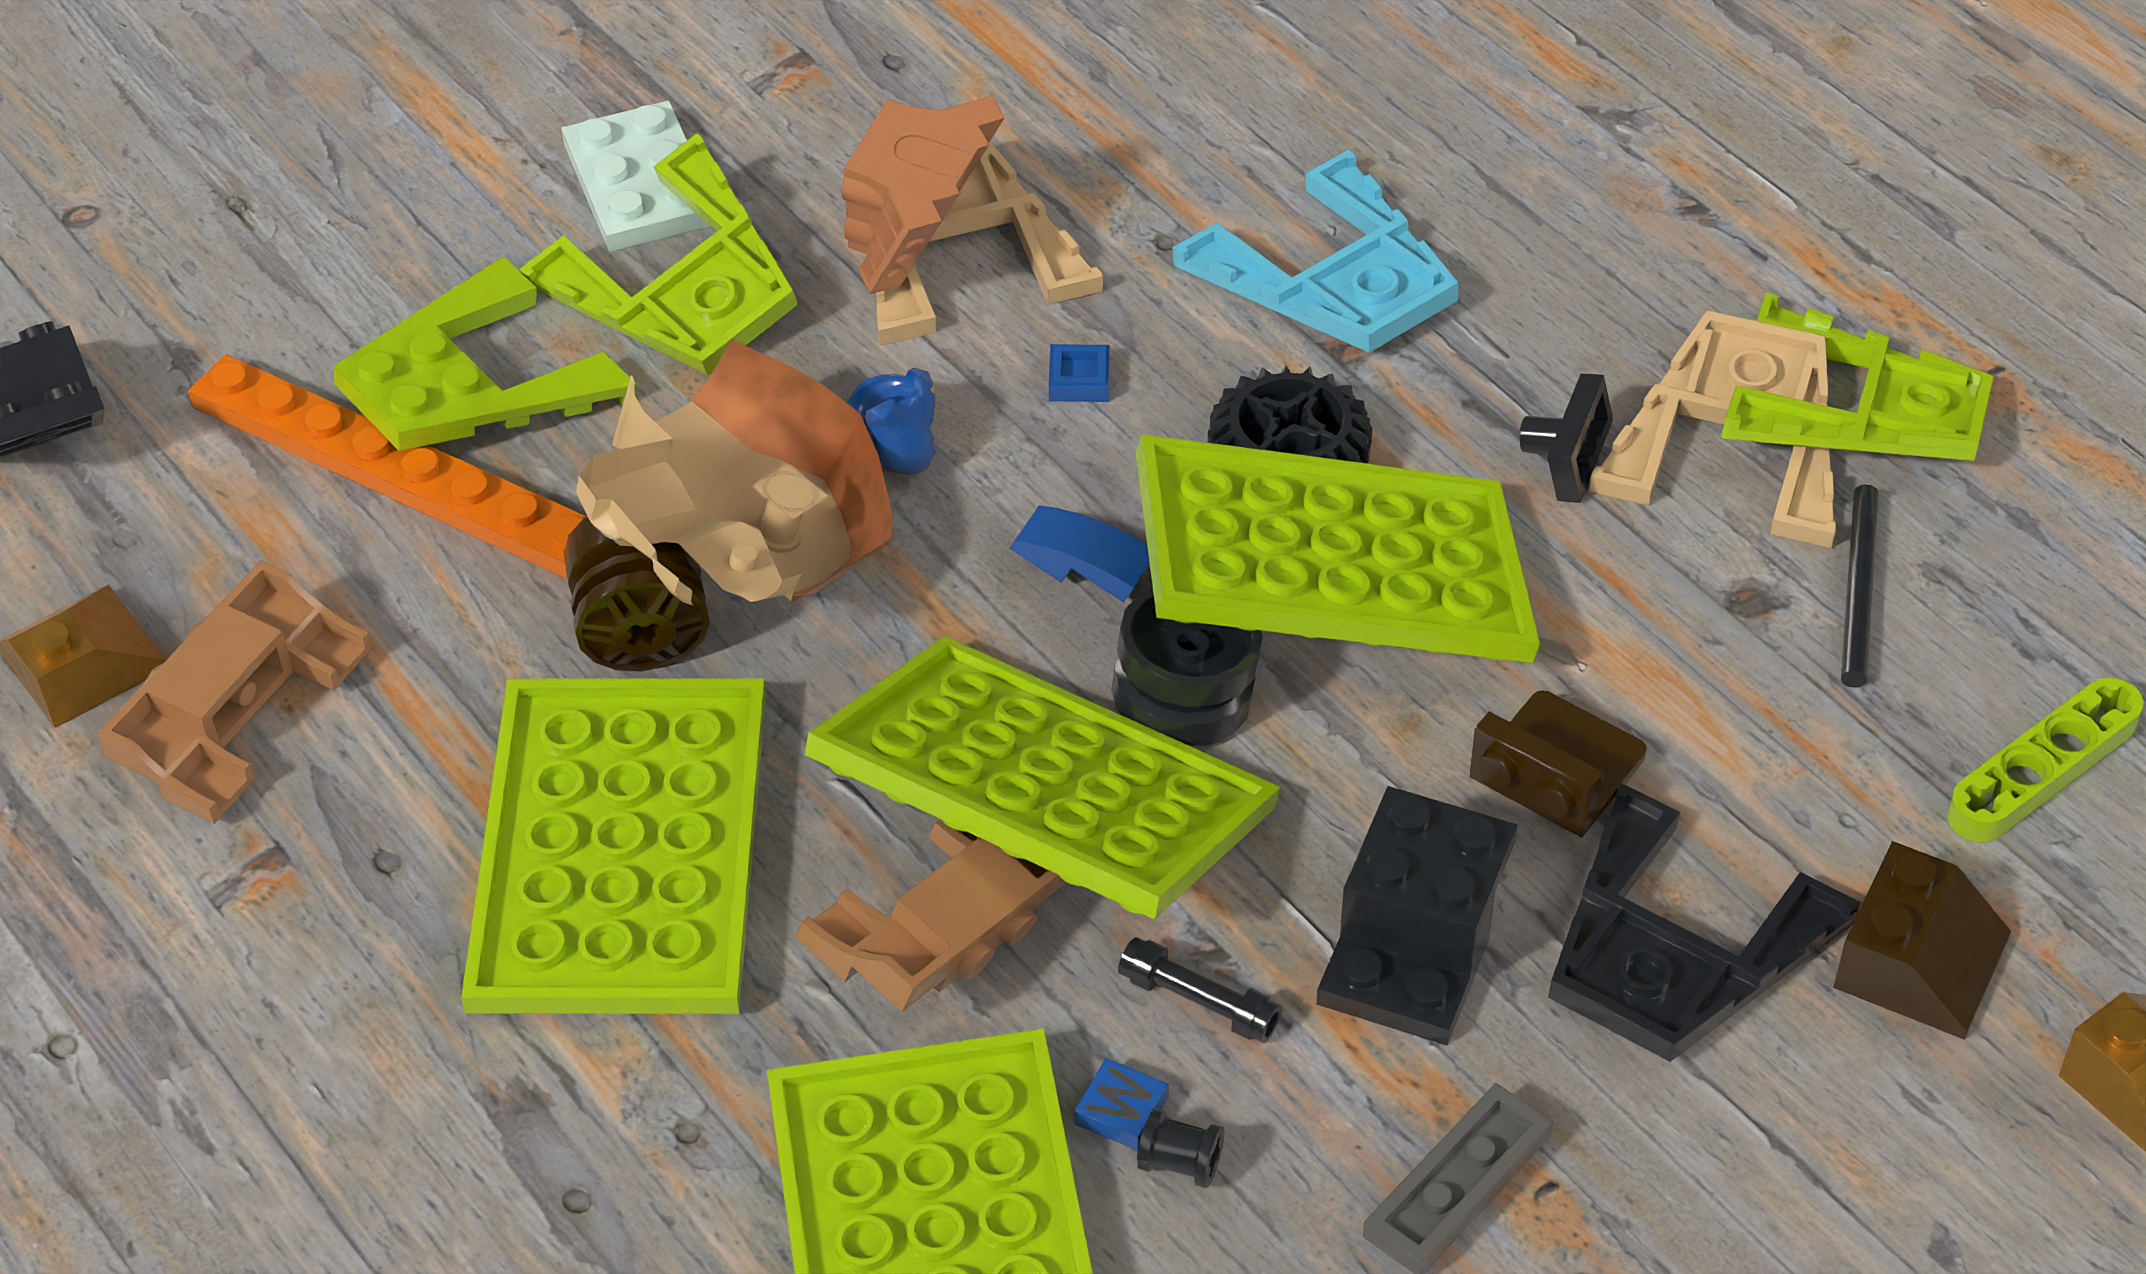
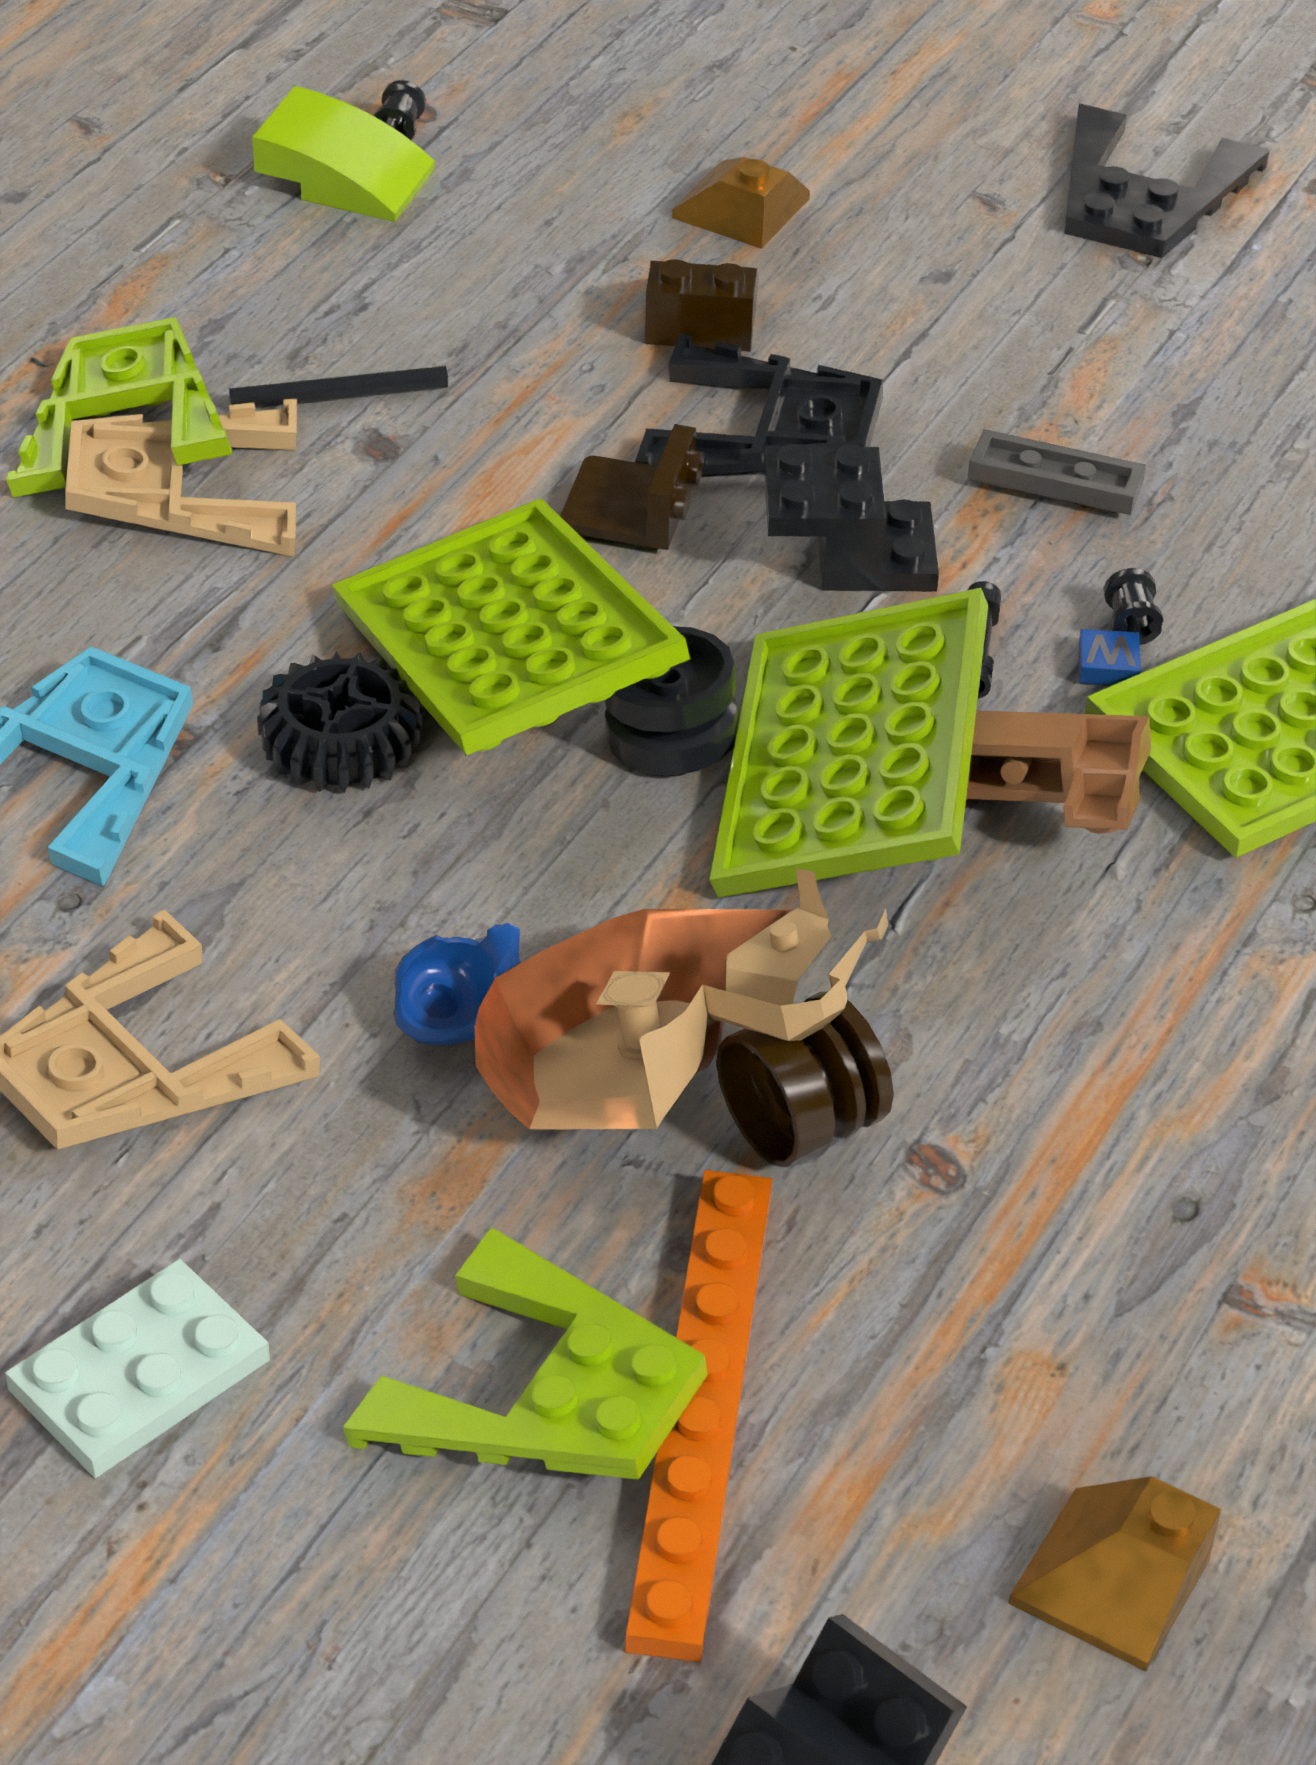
camera: 115 degrees left, 5 degrees down
(218, 682) = (1100, 1385): medium nougat bracket -> none
(618, 848) = (1073, 1029): lime plate -> none
(705, 299) = (331, 1195): lime wing -> none
(908, 179) = (161, 1007): nougat slope -> none
(1067, 540) = (553, 821): blue slope -> none
(1079, 373) = (301, 903): blue tile -> none
(1575, 439) = (255, 550): black tile -> none
(2038, 752) = (530, 294): lime beam -> none

